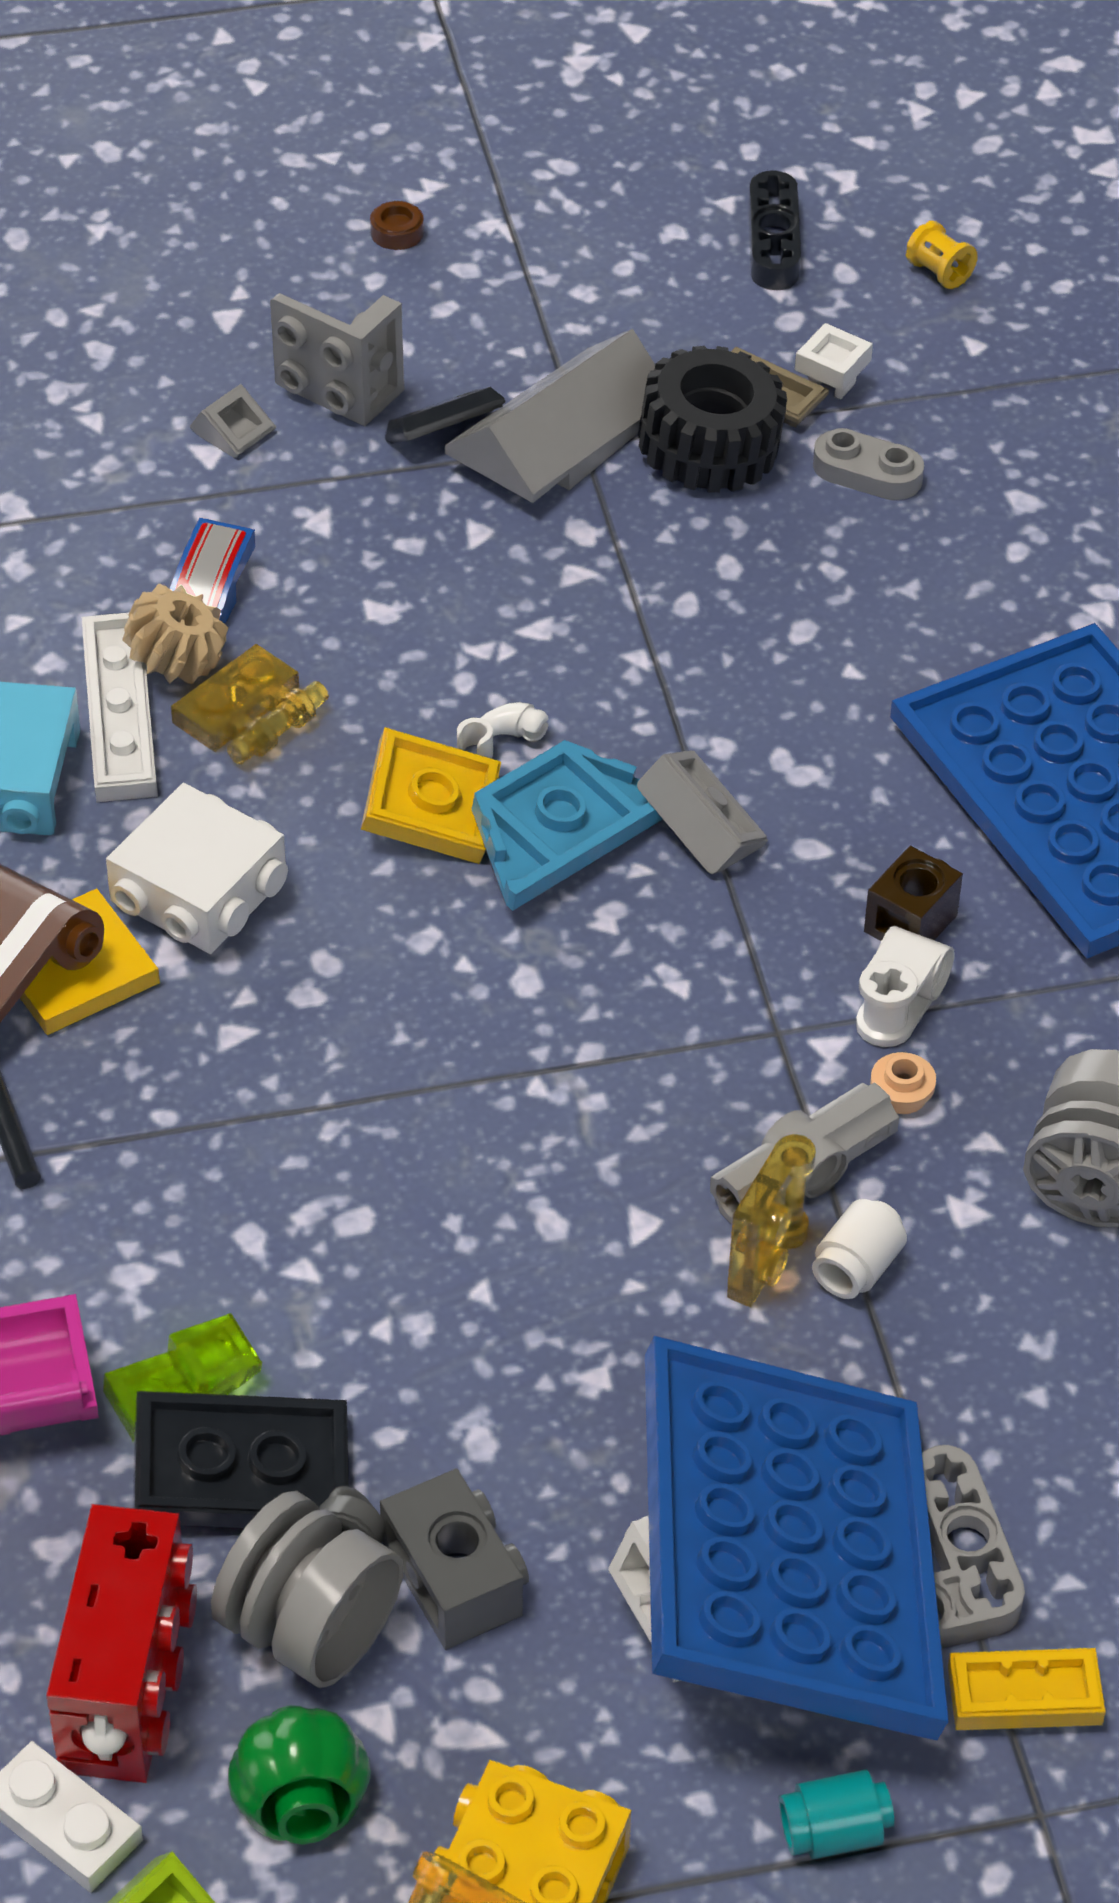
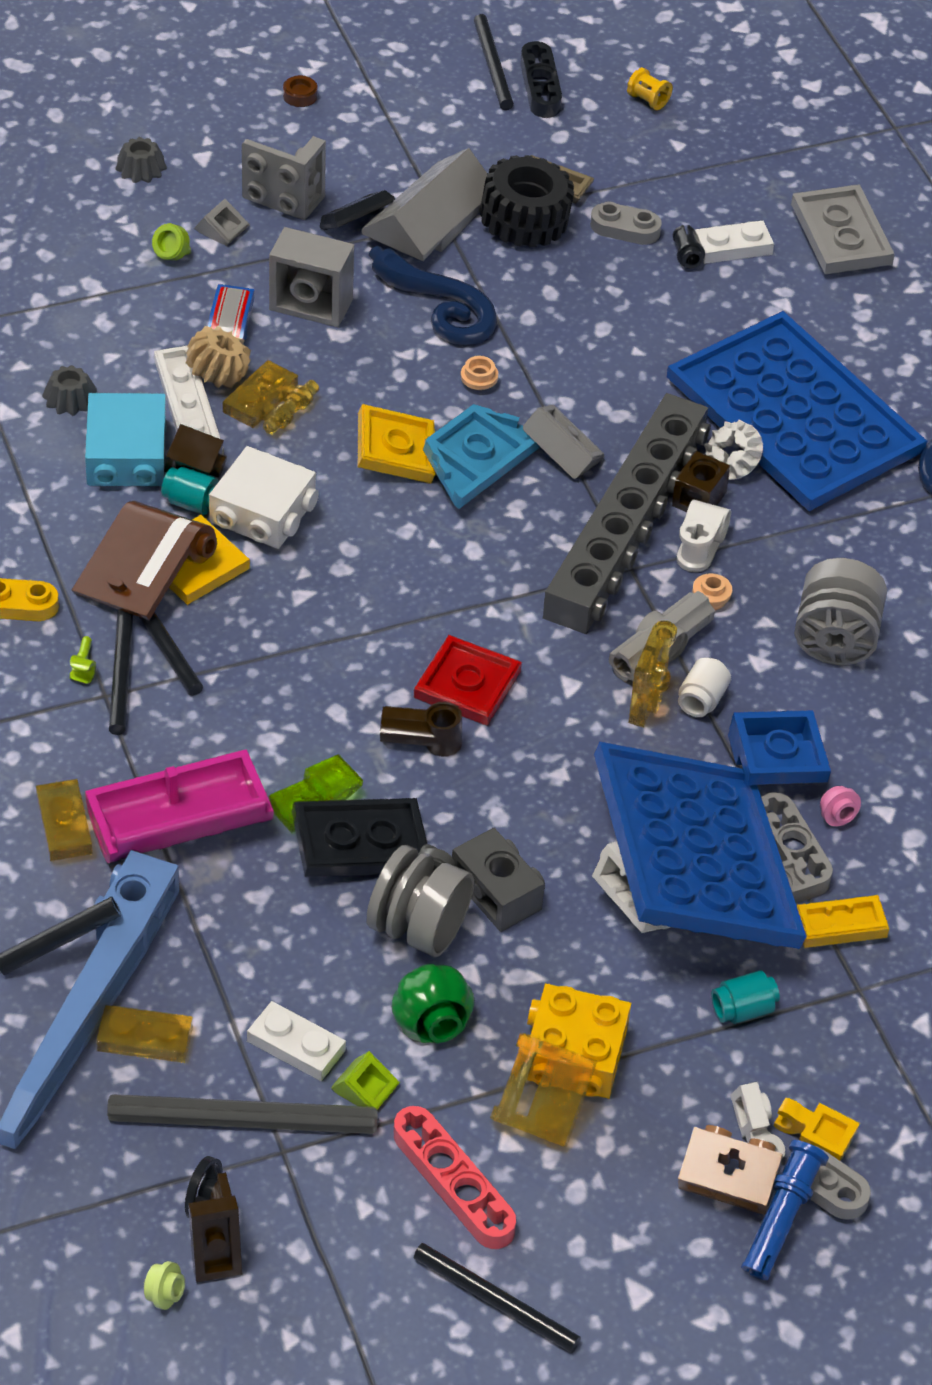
camera: 10 degrees left, 0 degrees up
(81, 843) = (188, 489): none -> teal brick
(103, 792) = (196, 452): none -> dark brown brick
(121, 1643) = (318, 925): red piece -> none
(128, 316) = (140, 160): none -> dark grey piece
(144, 446) = (171, 242): none -> lime tile
(345, 516) = (311, 276): none -> light grey brick
(399, 1279) = (436, 727): none -> dark brown piece
(472, 1201) = (468, 678): none -> red tile
(500, 526) = (405, 277): none -> dark blue plant
(509, 719) = (433, 395): white arm -> none
(588, 689) = (479, 373): none -> light nougat plate
(705, 199) = (493, 62): none -> black bar
(778, 944) = (625, 515): none -> dark grey brick
(833, 358) = (595, 158): white tile -> none
(961, 516) = (689, 252): none -> black pin
(965, 1368) = (779, 747): none -> blue plate
(984, 868) = (746, 437): none -> white gear
(1036, 505) = (735, 241): none -> white plate
(1055, 1479) = (840, 805): none -> bright pink plate

